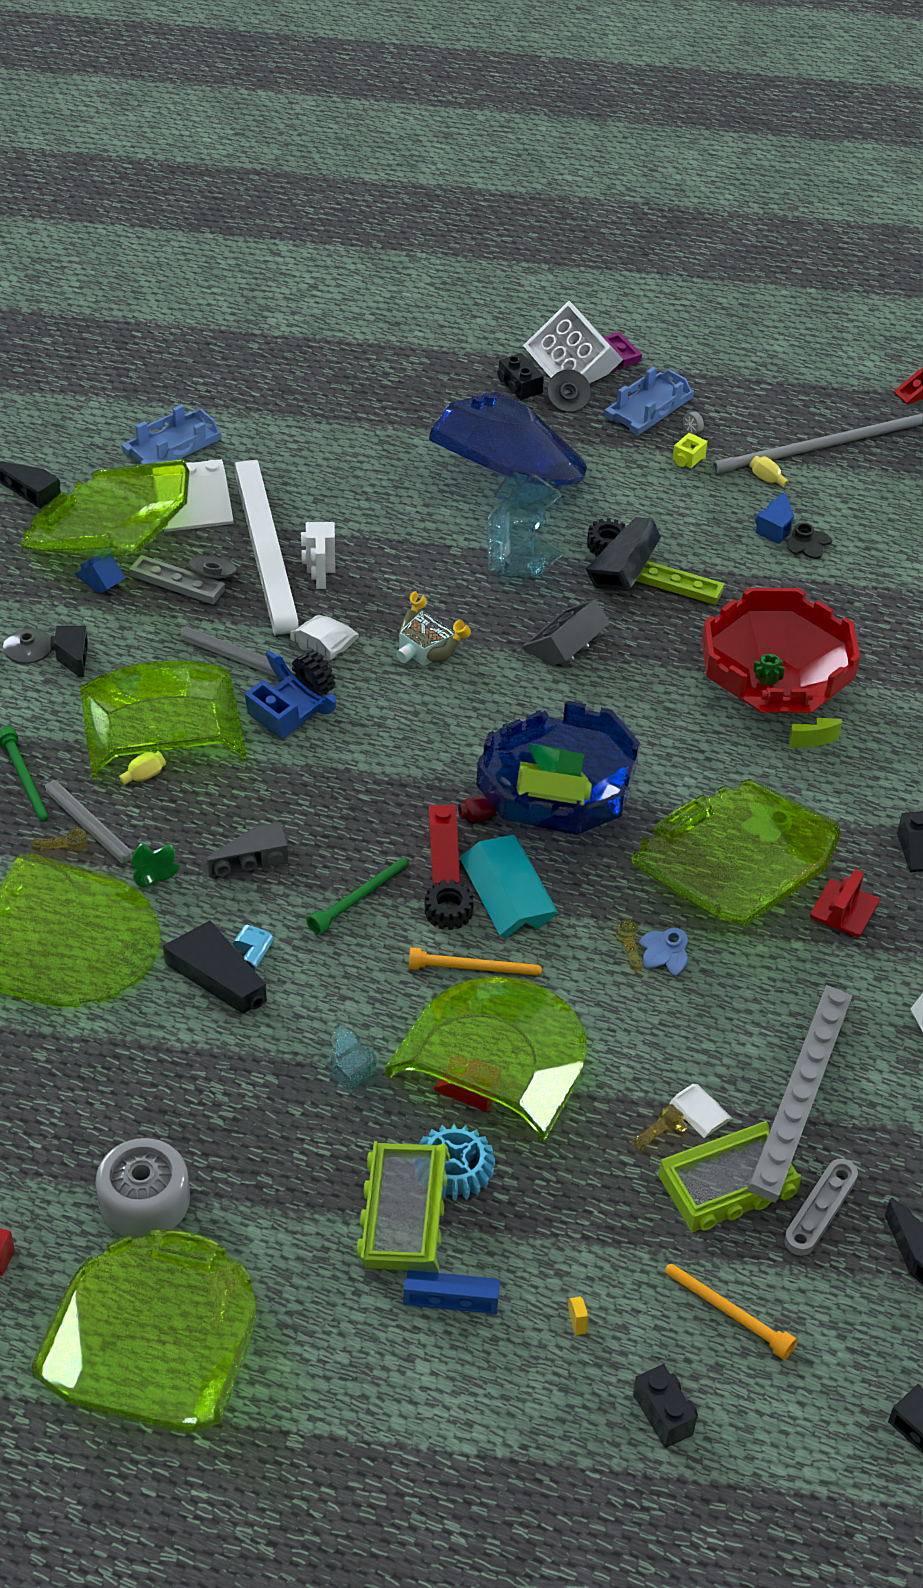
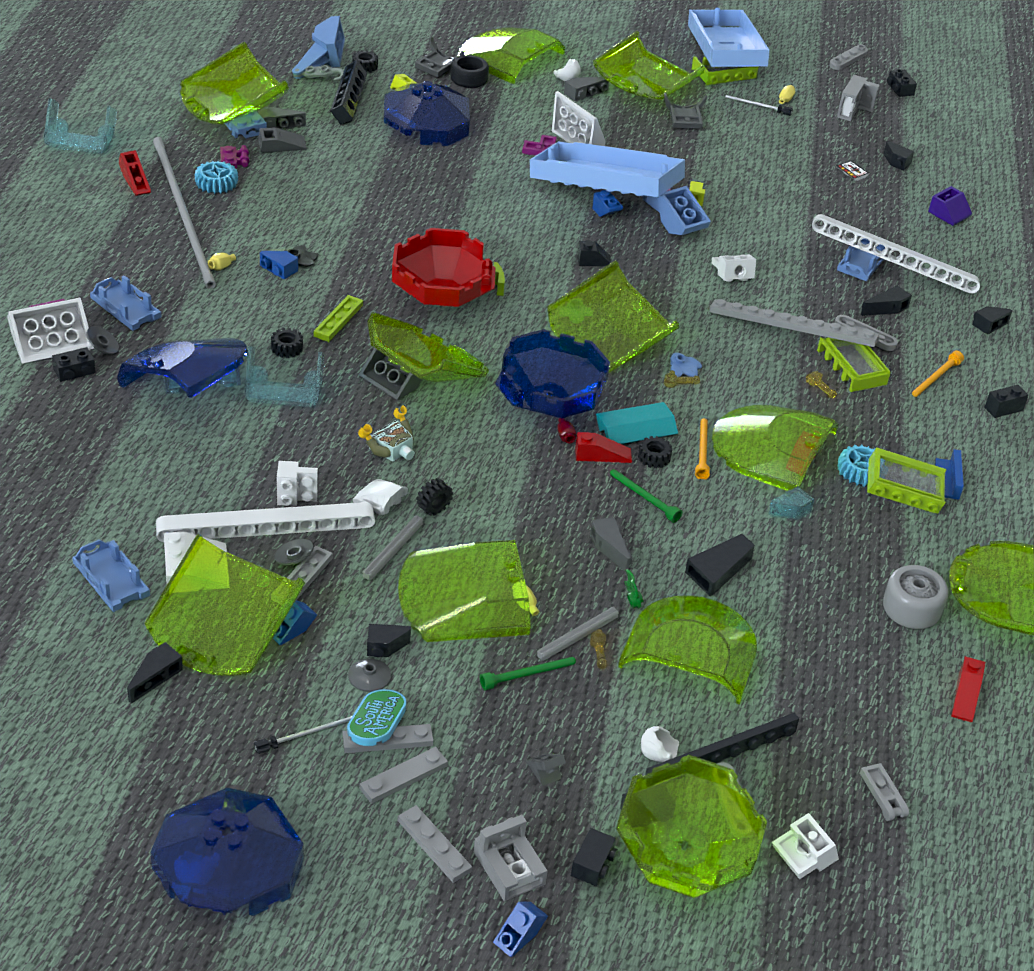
camera: 90 degrees left, 5 degrees down
(254, 943) = (693, 546): medium azure piece -> none
(287, 703) = (460, 516): blue piece -> none
(552, 785) = (578, 372): lime window -> none
(557, 760) = (556, 370): green slope -> none
(578, 1315) = (955, 427): yellow tile -> none
(585, 643) = (420, 353): none -> clear neon green windscreen
(625, 556) = (323, 331): black slope -> none
(685, 455) = (193, 291): neon yellow brick -> none
(693, 423) = (157, 286): light grey tile -> none
(700, 1110) = (802, 369): white piece -> none
(769, 669) = (449, 280): green gear -> none
(845, 905) = (648, 287): red bracket -> none

